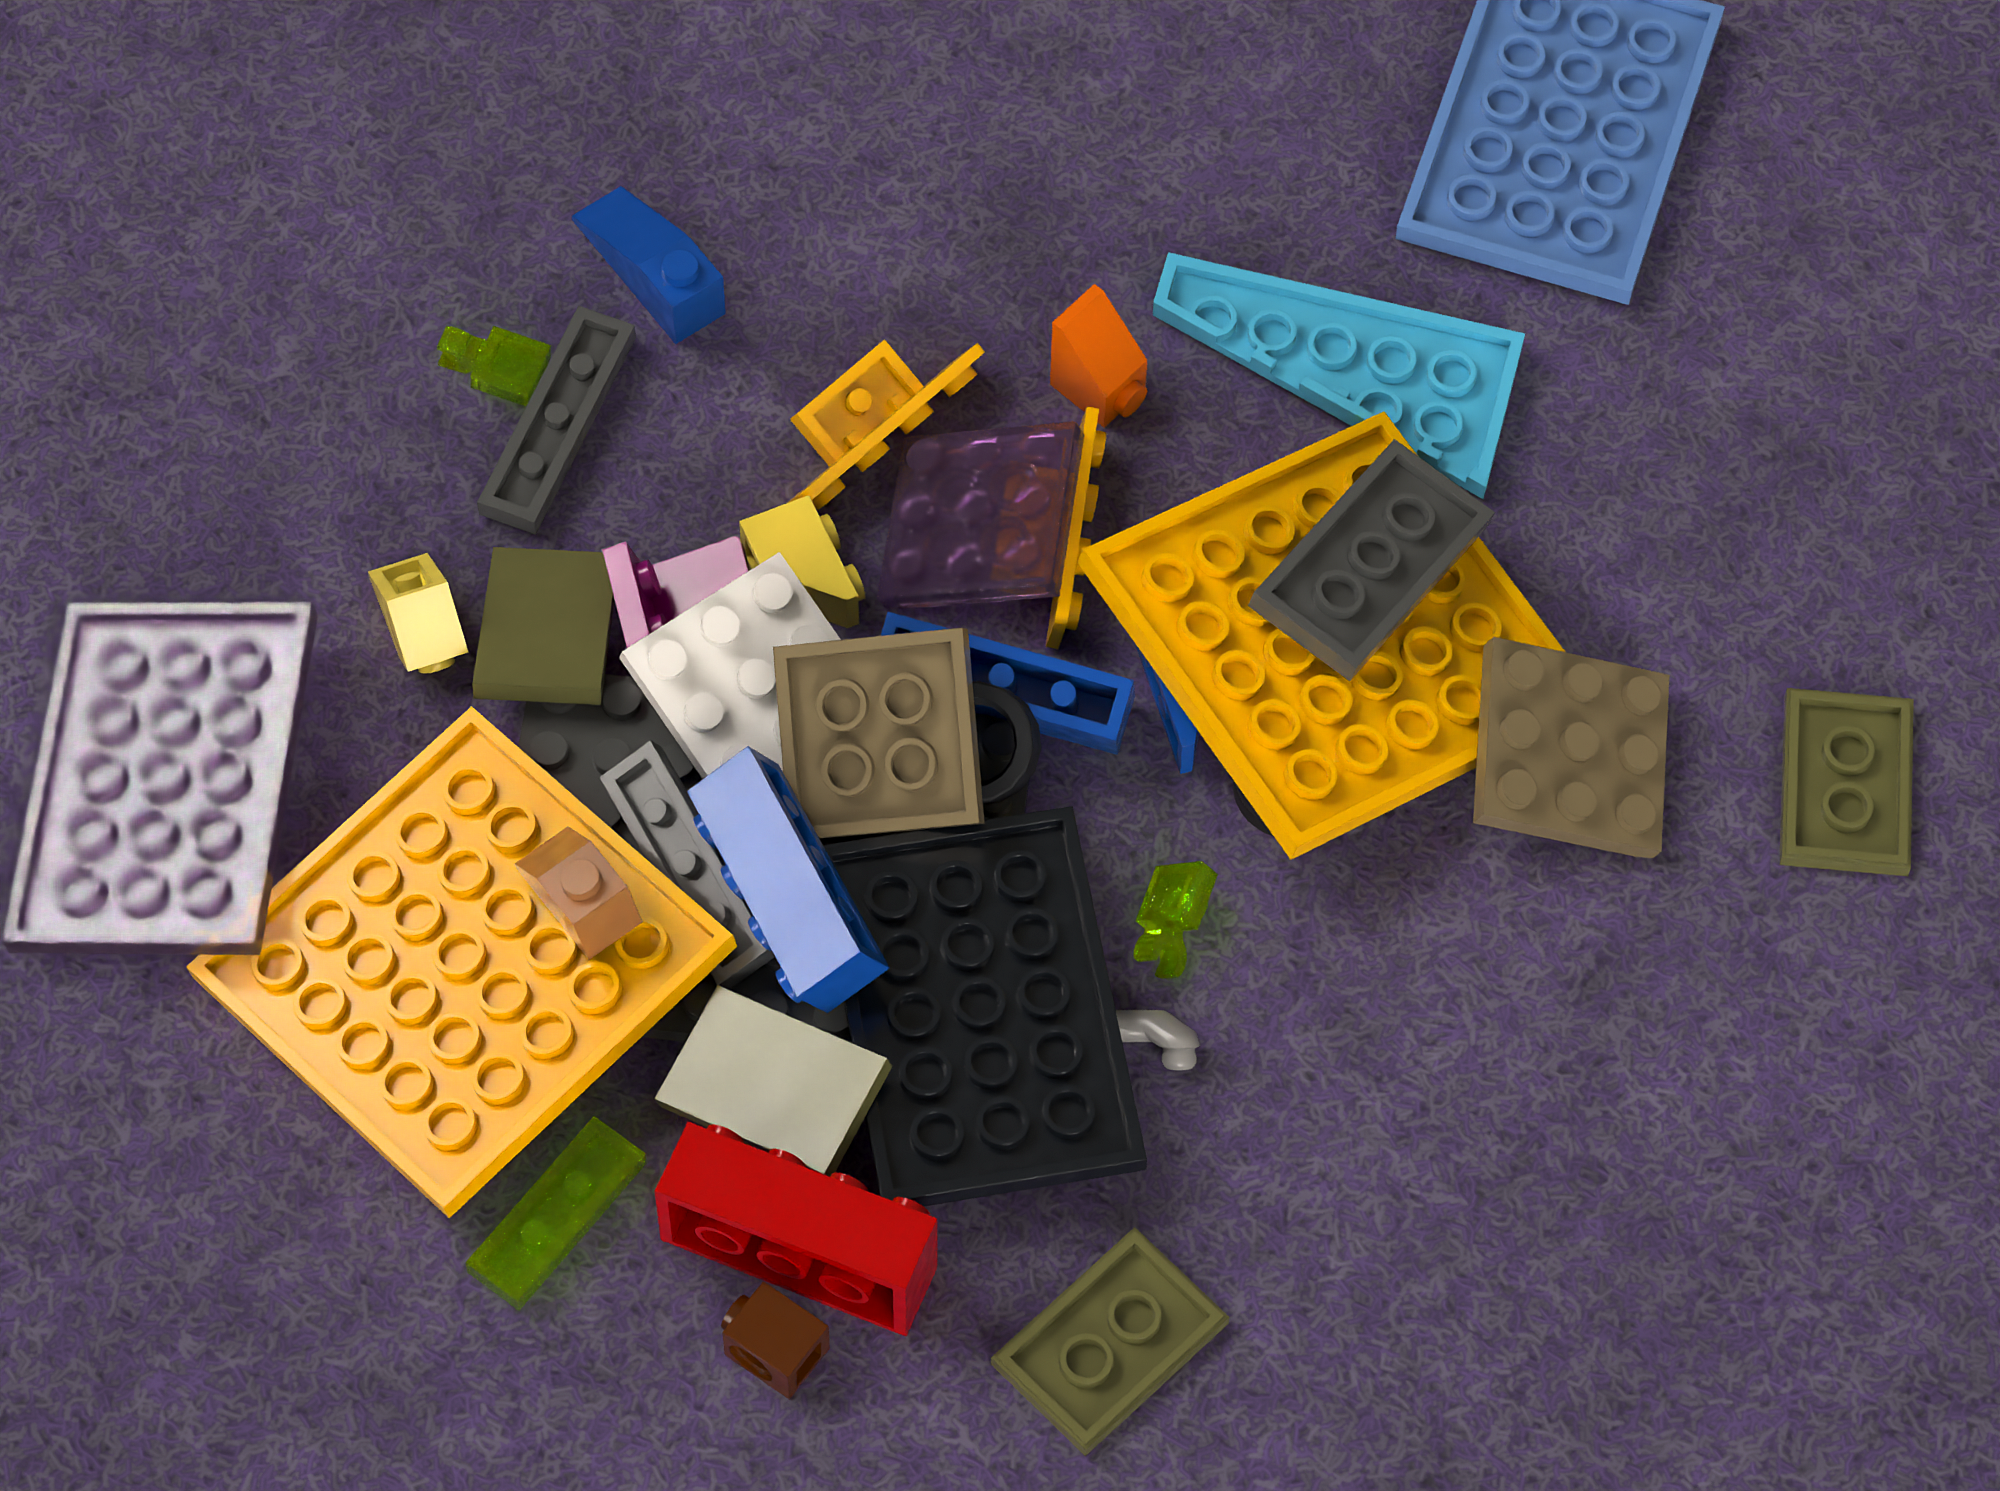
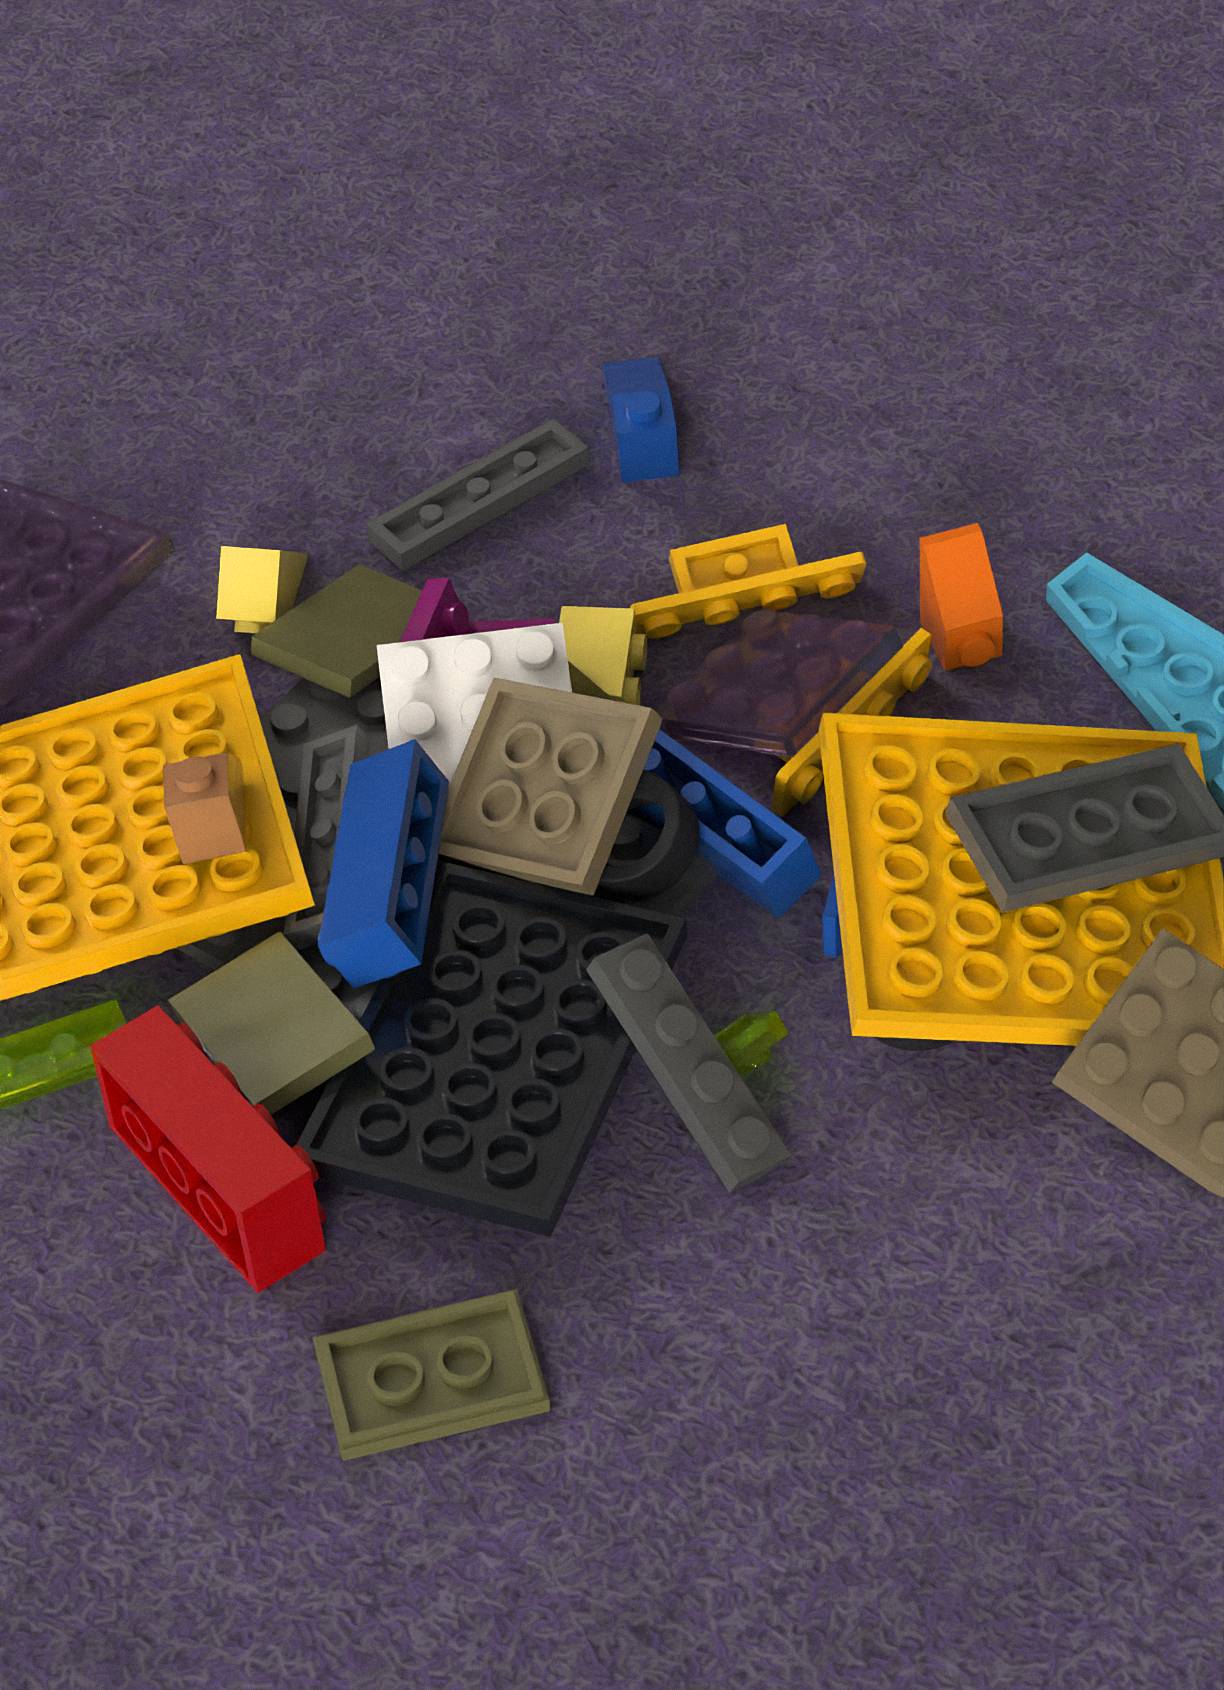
camera: 35 degrees right, 15 degrees down
(500, 366) = (458, 438): clear neon green plate -> none
(774, 1338) = (135, 1236): reddish brown brick -> none
(1160, 947) = (688, 1062): none -> dark grey plate
(1164, 1031) = (653, 1139): light grey arm -> none

